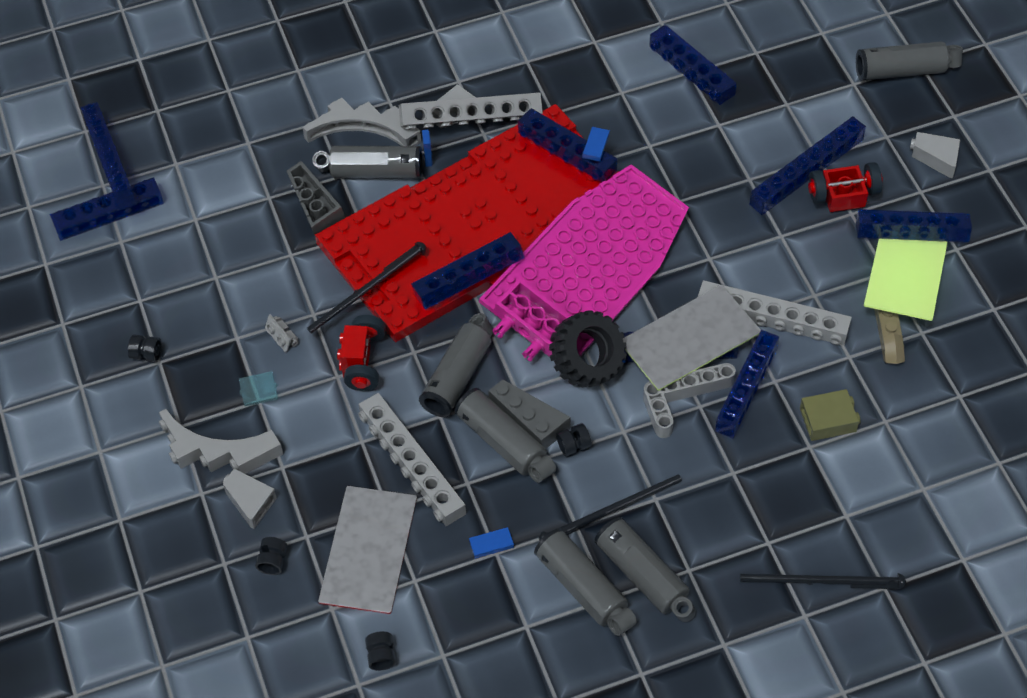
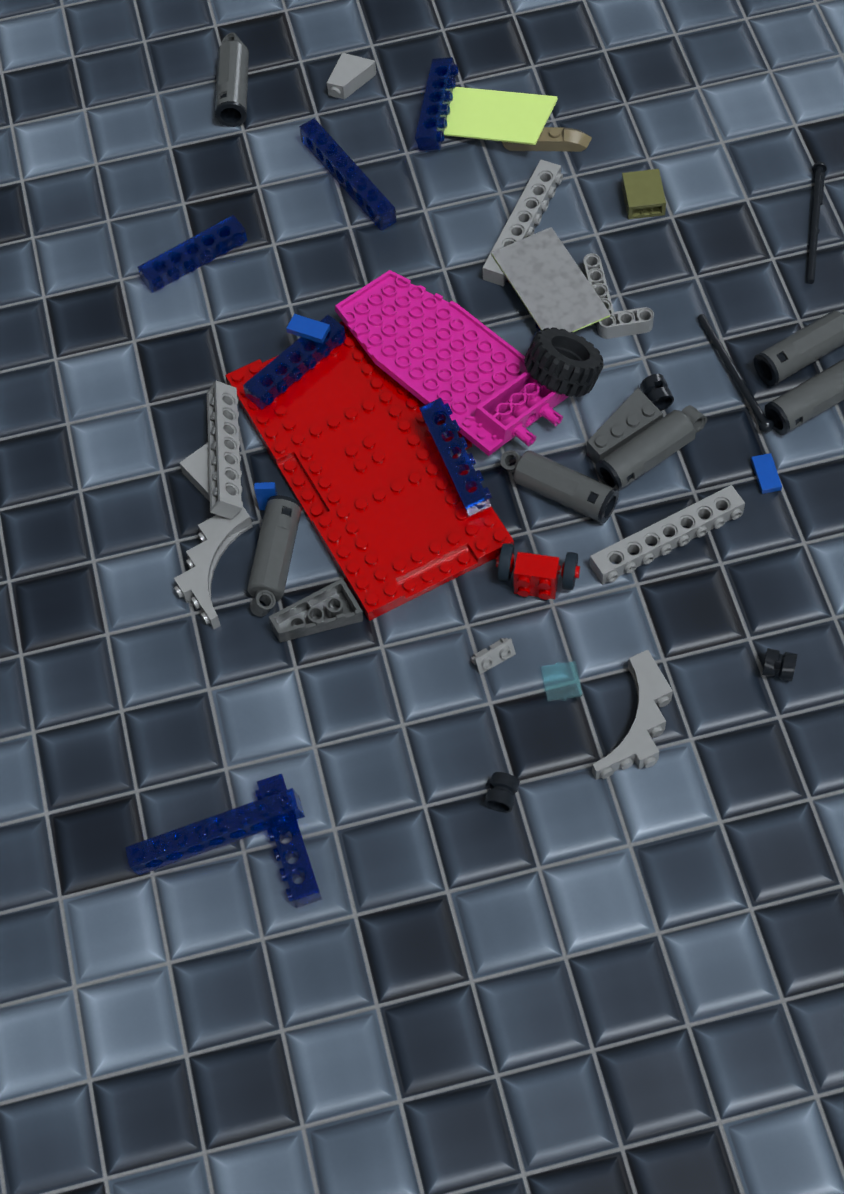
camera: 80 degrees left, 5 degrees up
(249, 496) = (705, 687): light grey slope -> none
(368, 550) = (766, 582): flat silver piece -> none
(419, 248) = (431, 532): black bar -> none
(747, 384) = (608, 247): clear blue brick -> none
(845, 186) = (383, 142): brick -> none

